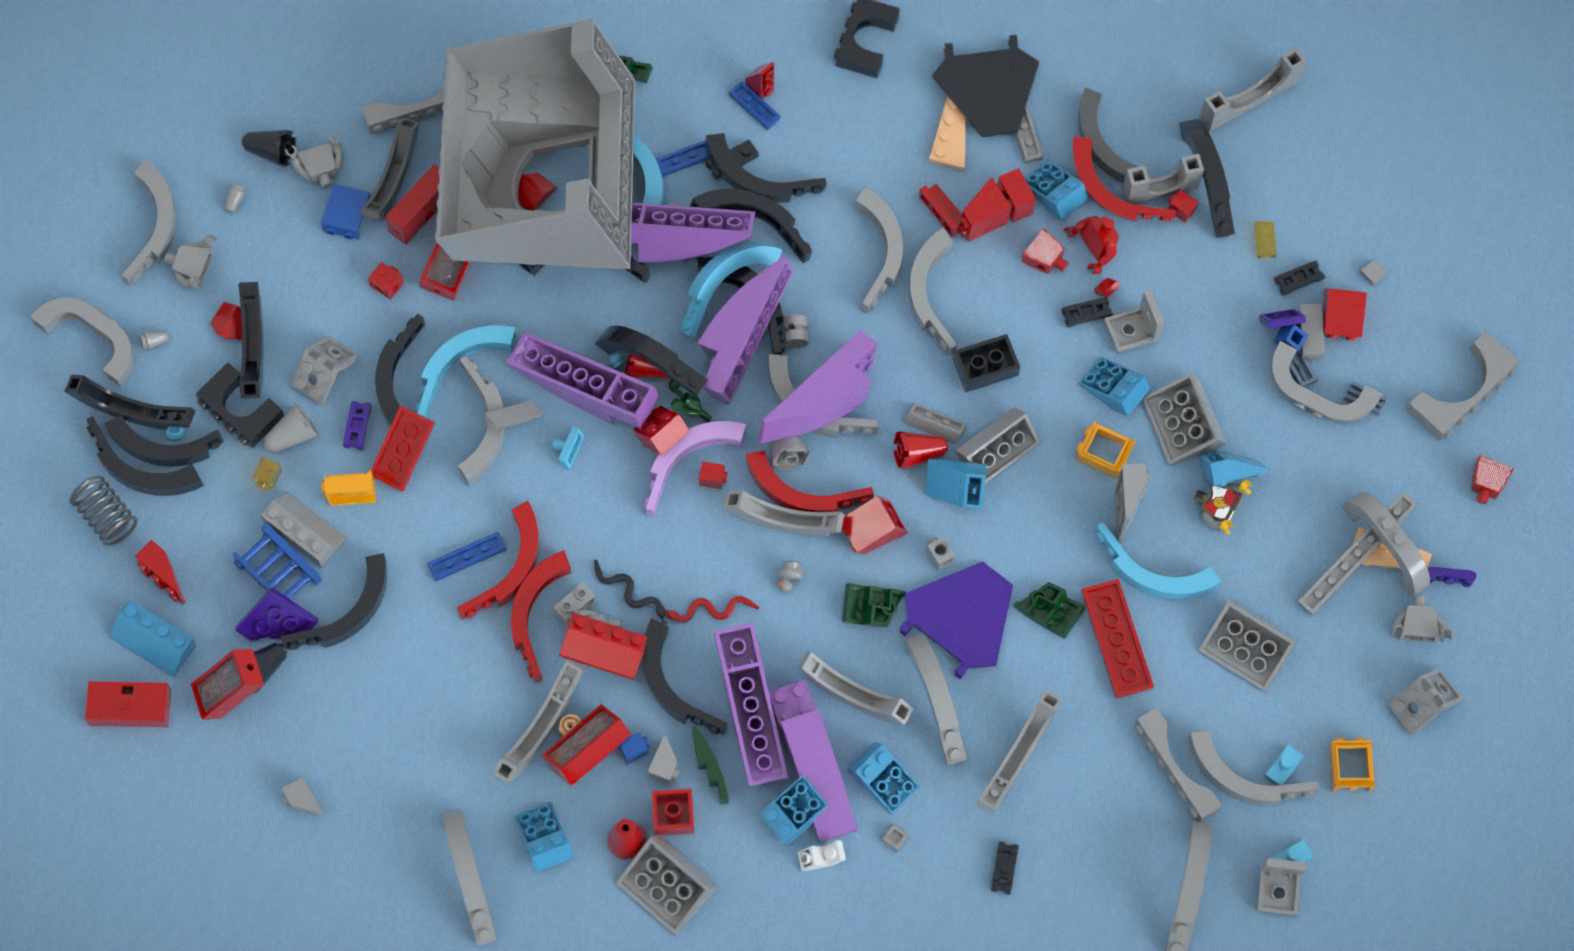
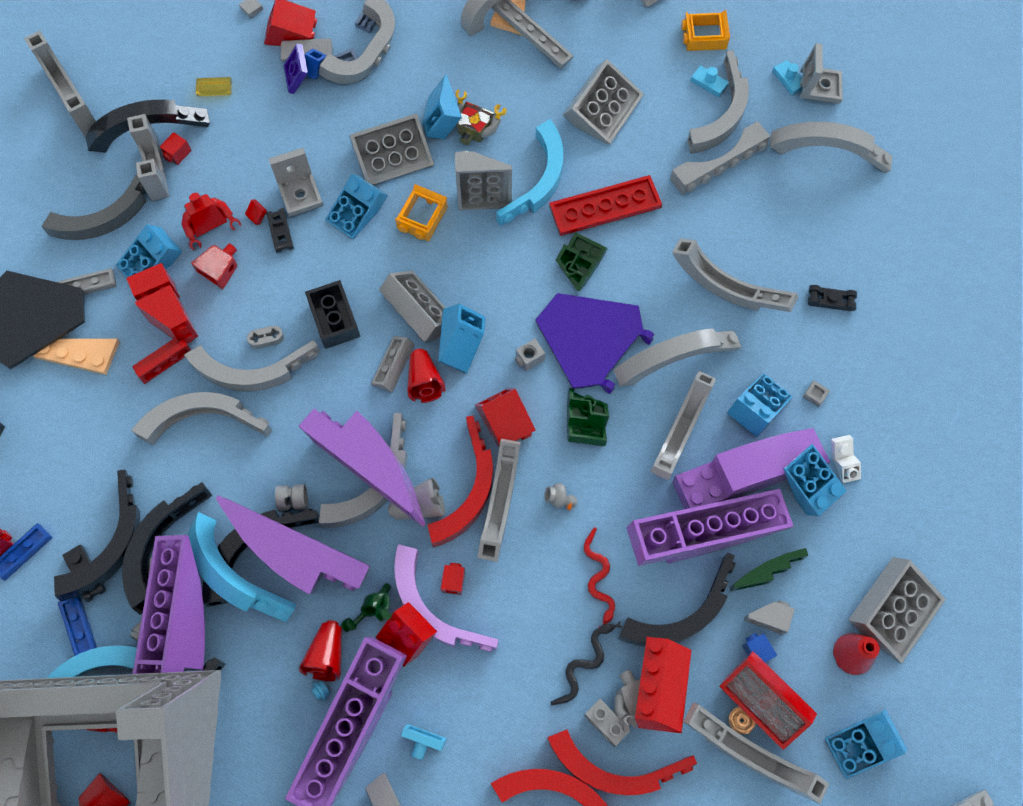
camera: 90 degrees left, 0 degrees up
(644, 347) = (314, 654): black arch -> none
(673, 812) = (826, 604): red brick -> none
(961, 304) = (265, 337): none -> light grey beam
(1083, 162) = (131, 225): red arch -> none
(1299, 277) = (253, 60): black plate -> none

